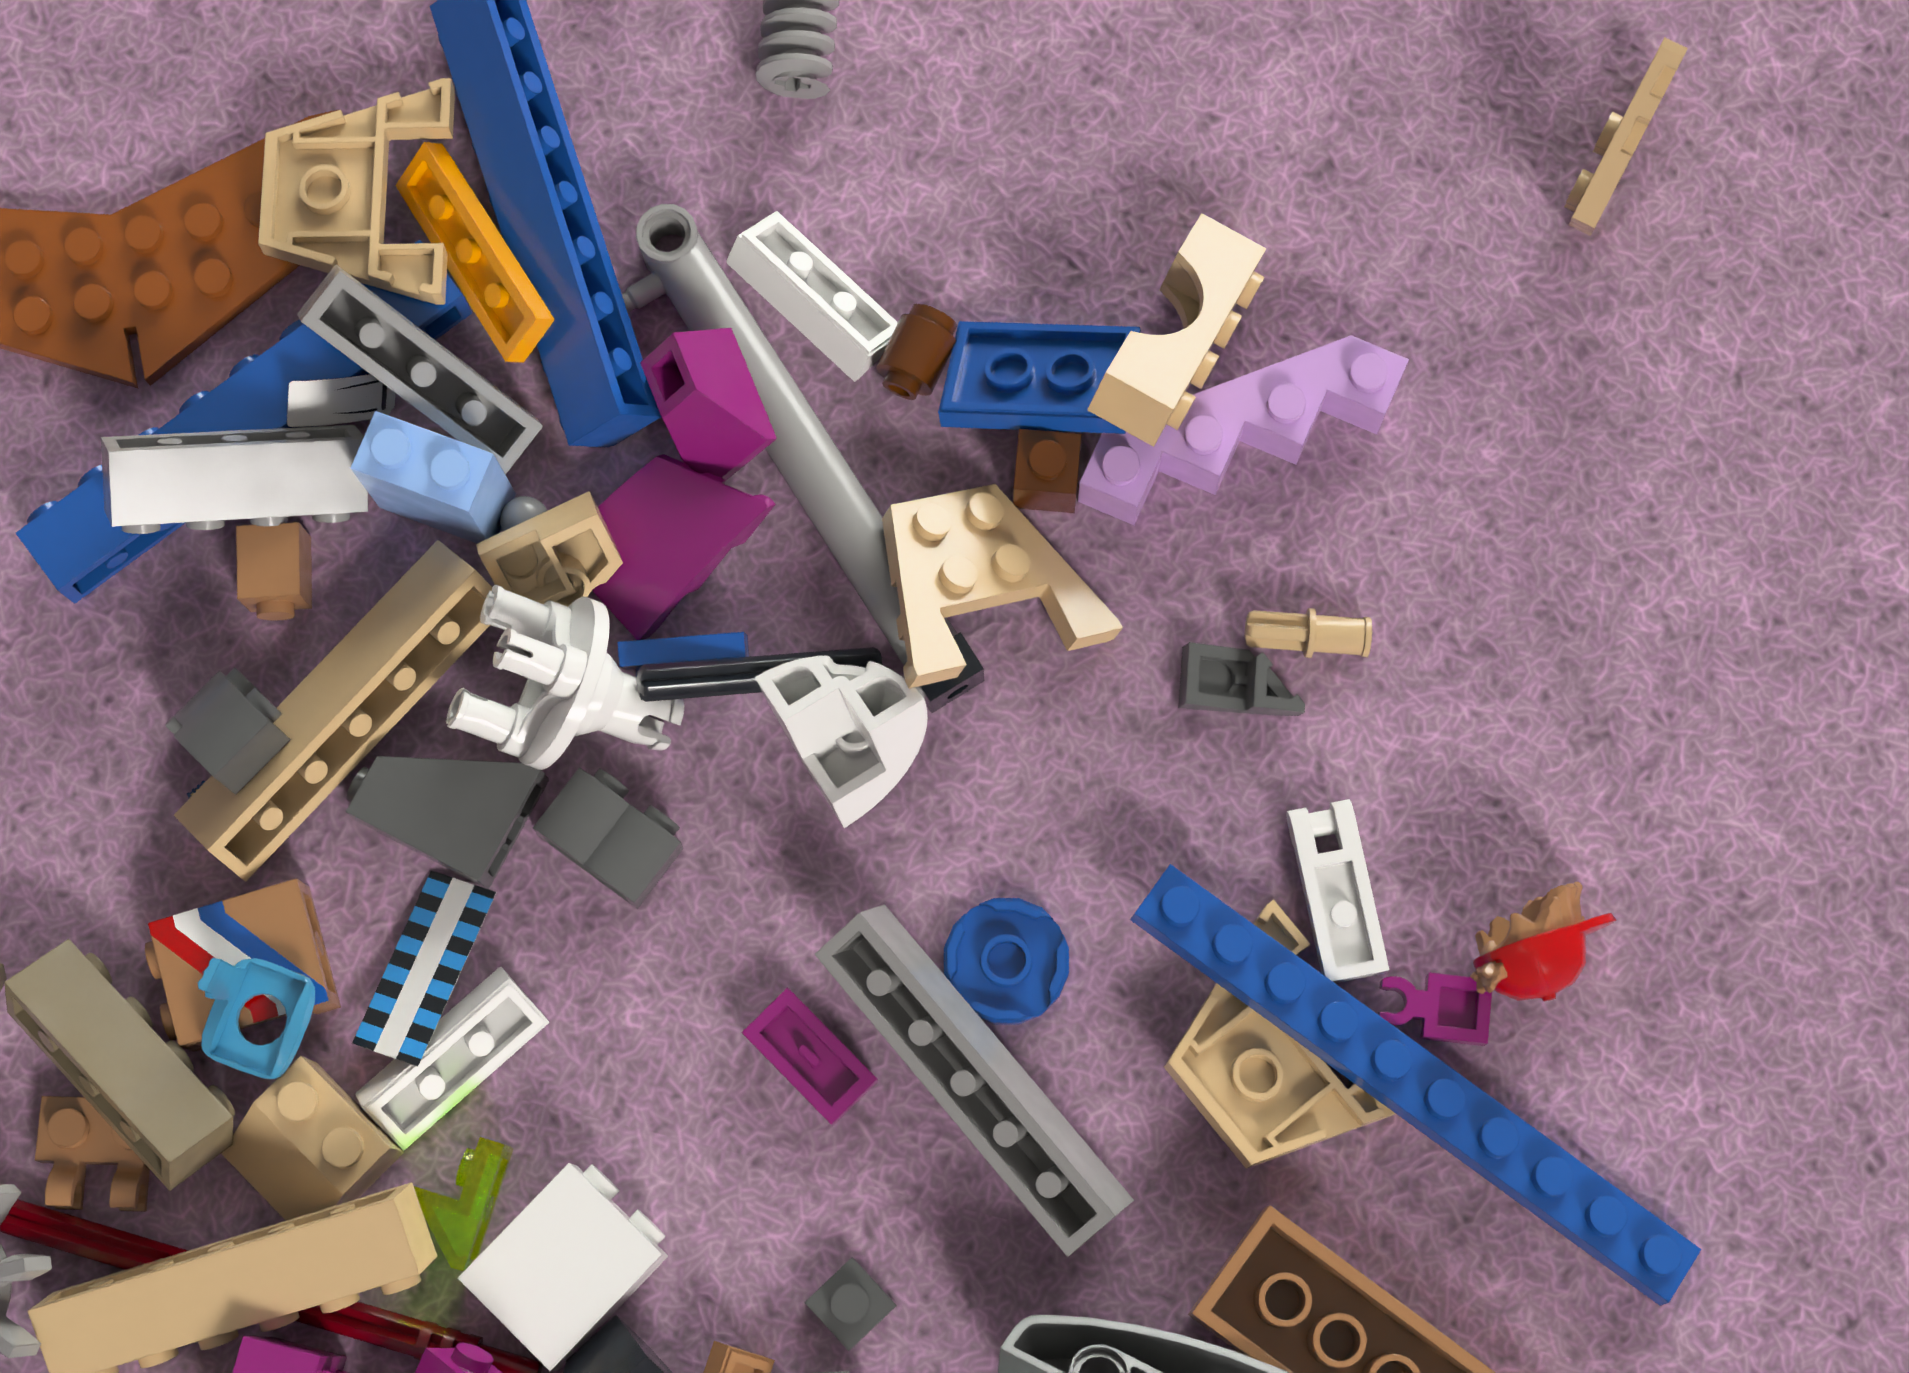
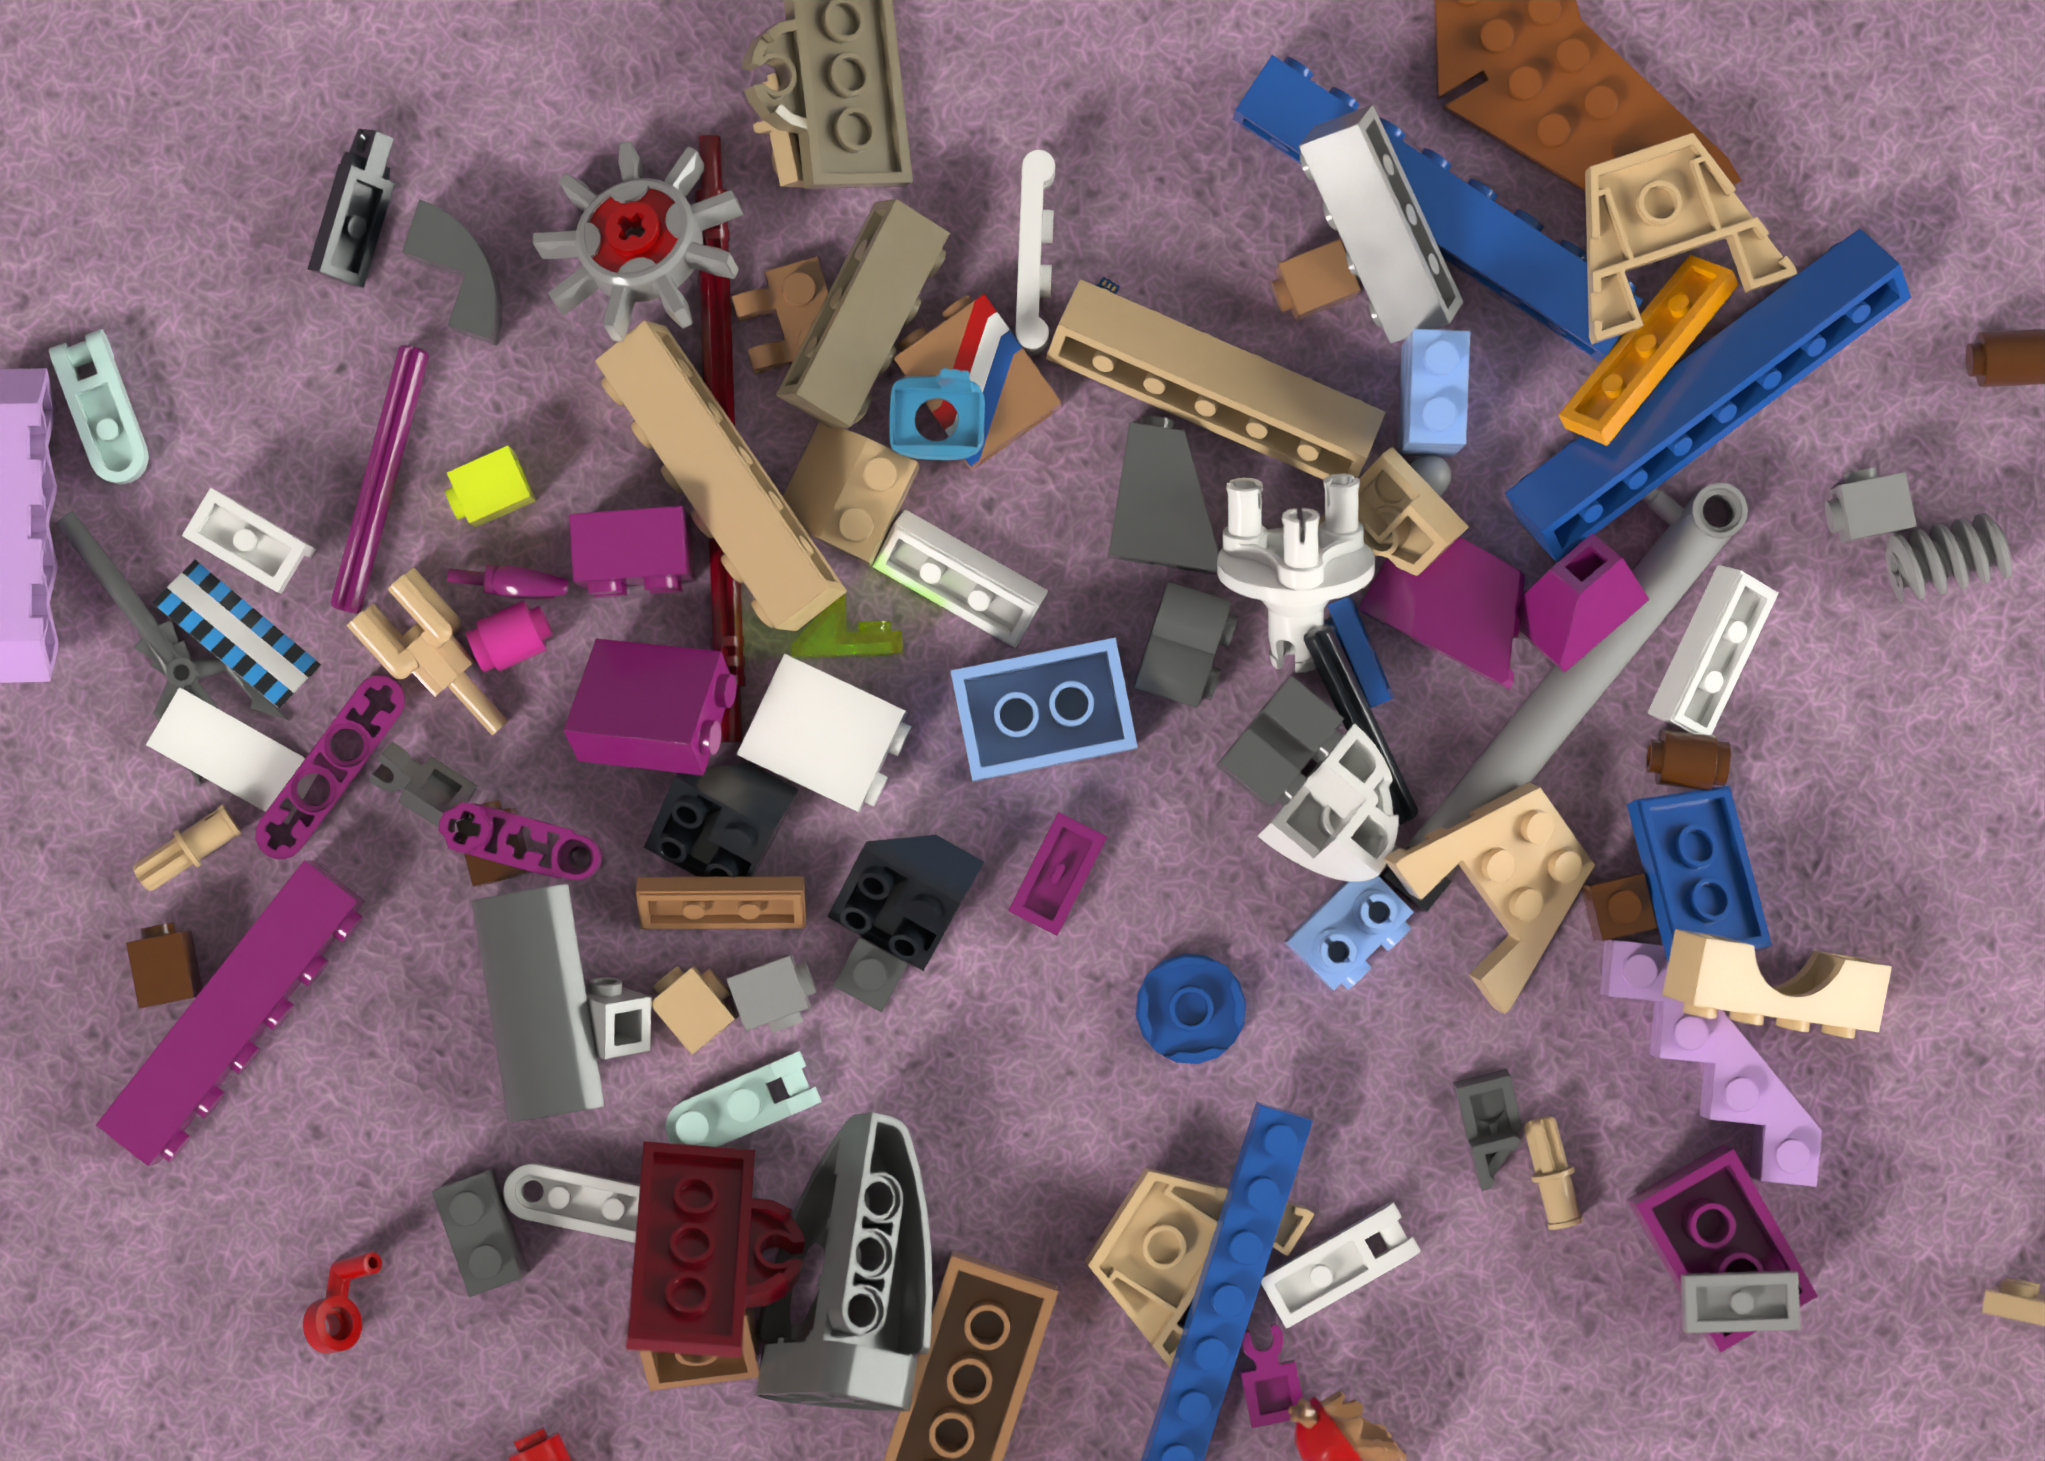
camera: 70 degrees right, 10 degrees up
(105, 848) = (1035, 229): none -> white plate
(229, 729) = (1165, 299): dark grey brick -> none
(337, 400) = (1479, 283): white sticker -> none
(418, 368) = (1524, 346): light grey brick -> none
(424, 968) = (1025, 530): sticker -> none
(623, 1009) = (1044, 709): none -> light blue brick
(718, 88) = (1870, 506): none -> light grey brick
(748, 765) = (1280, 743): none -> dark grey brick
(773, 1233) = (905, 894): none -> black slope
(974, 1078) = (1083, 1016): light grey brick -> none
(977, 761) = (1349, 930): none -> light blue brick
(1444, 479) = (1715, 1223): none -> magenta brick
(1507, 470) = (1740, 1301): none -> light grey plate

